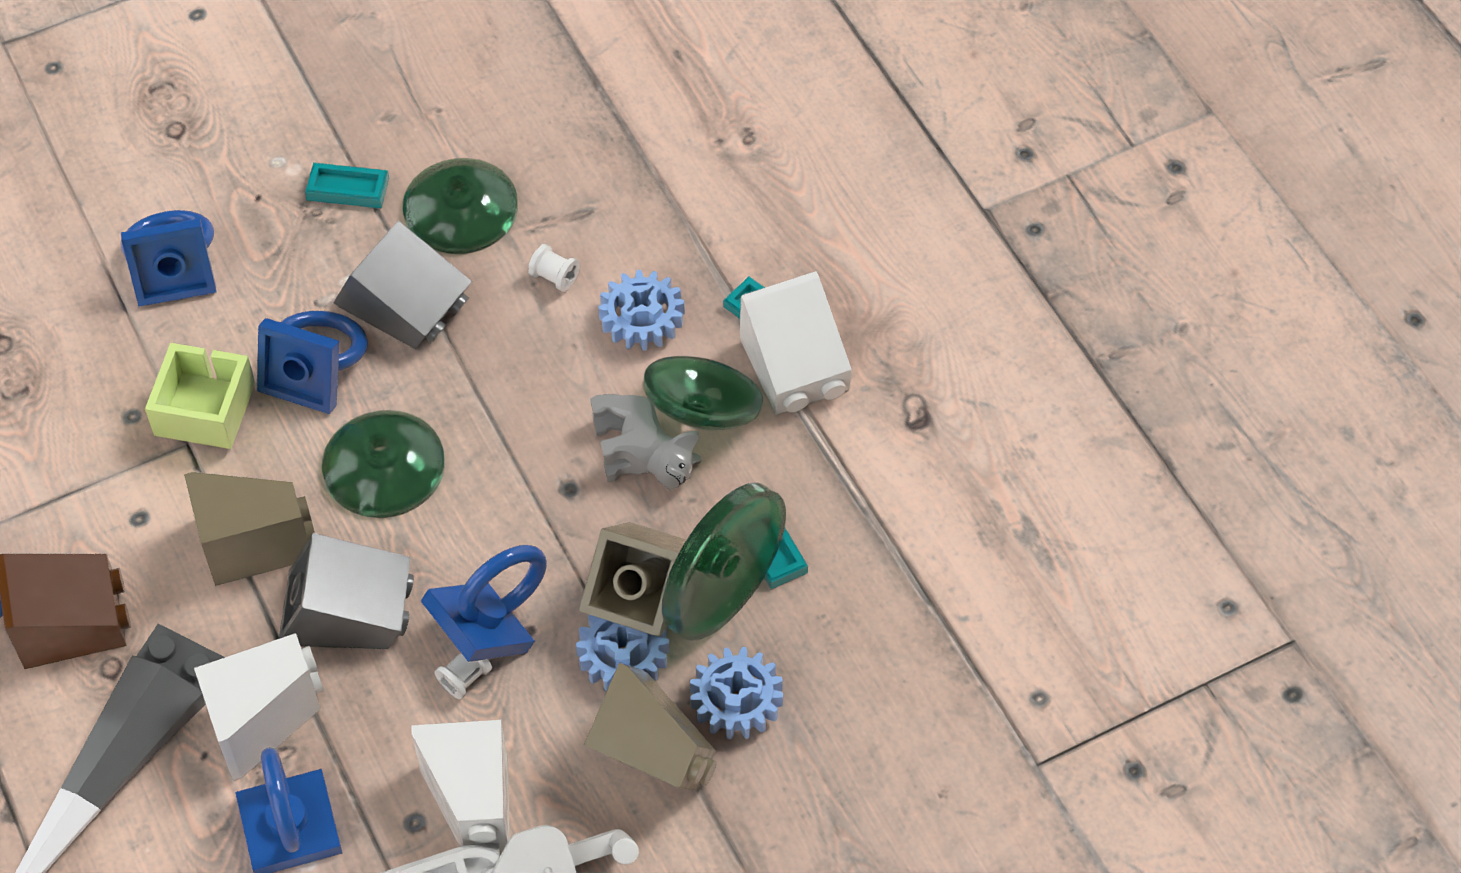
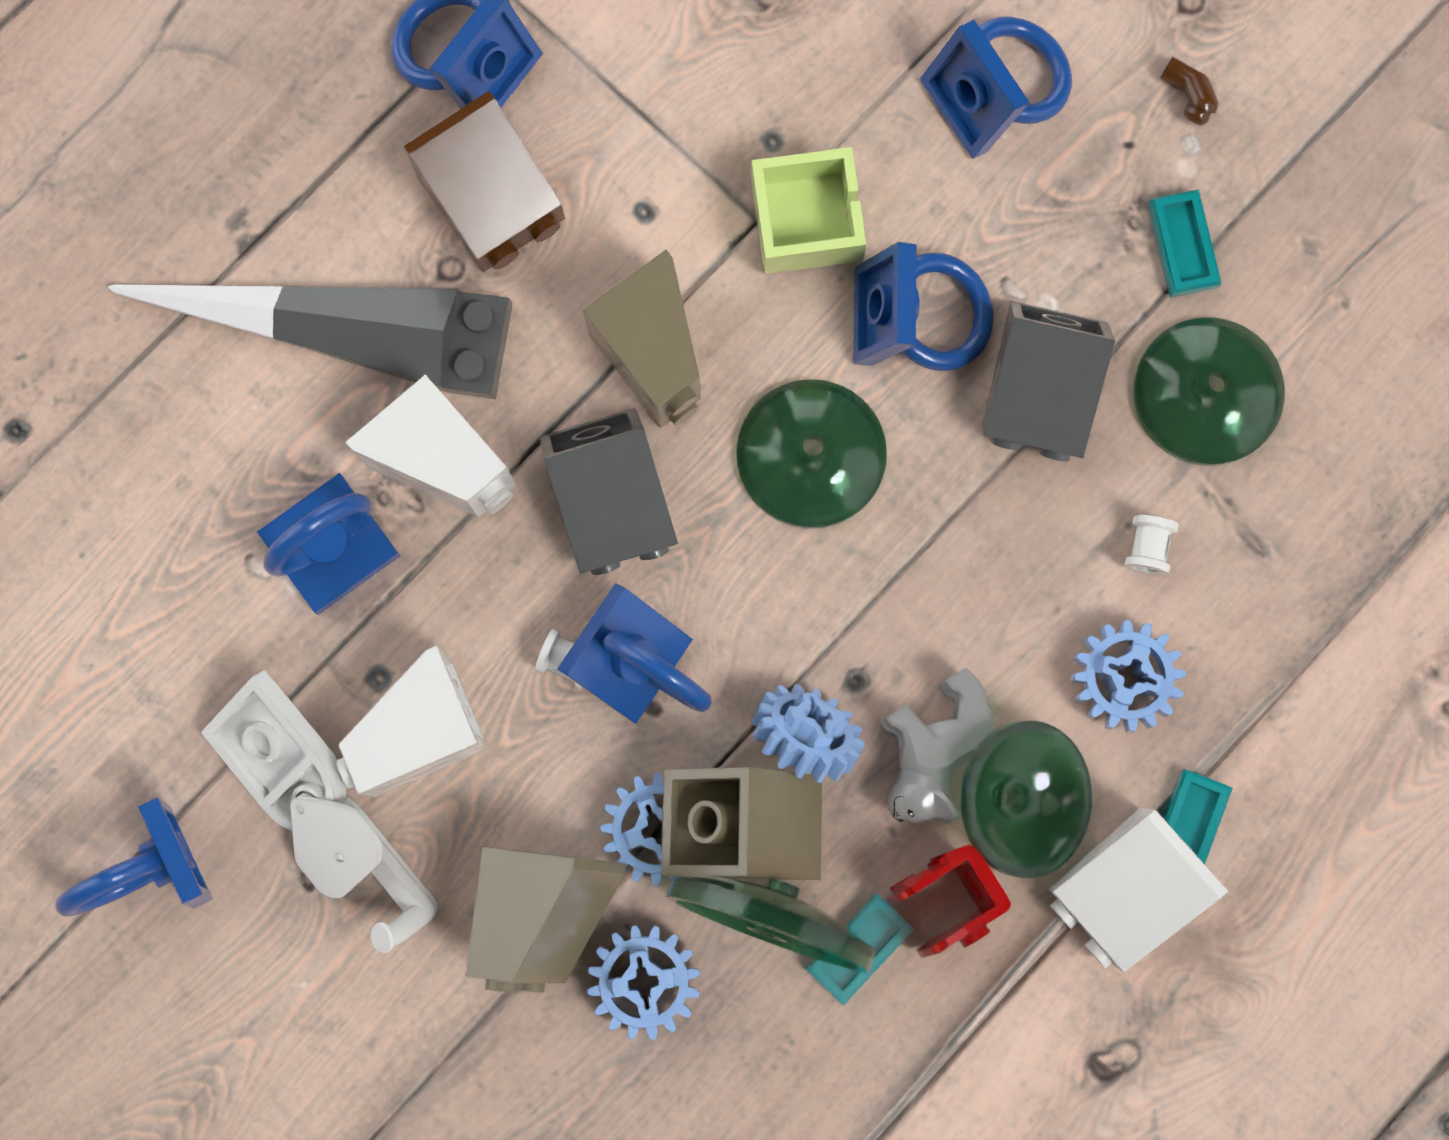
camera: 70 degrees right, 25 degrees up
(236, 142) = (1196, 86): none -> reddish brown arm
(592, 511) = (807, 733): none -> light blue gear
(769, 450) = (978, 881): none -> red piece

